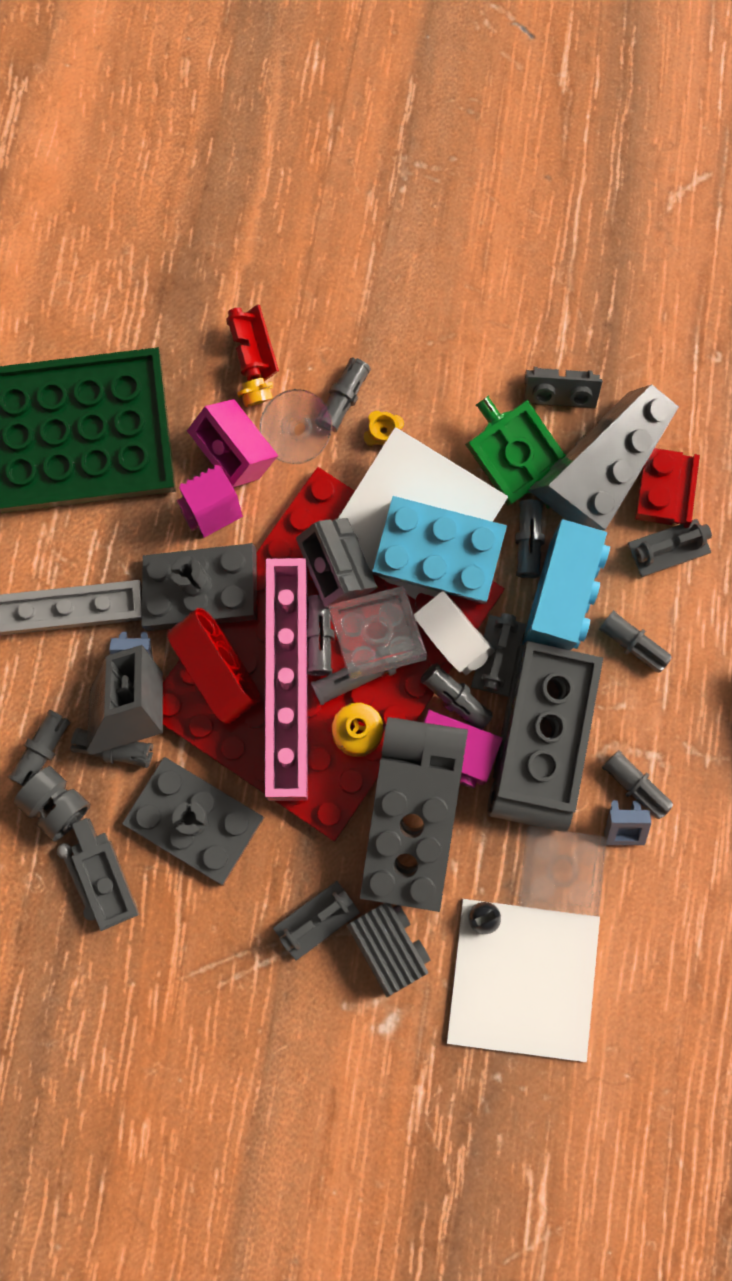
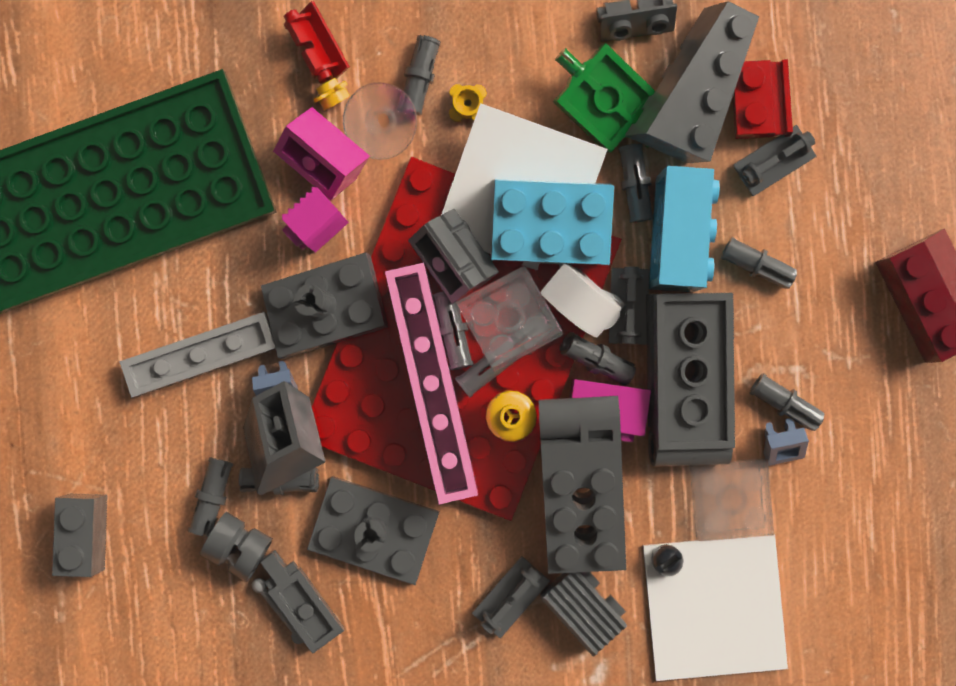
camera: 10 degrees left, 10 degrees up
(213, 666) = (358, 384): red beam -> none

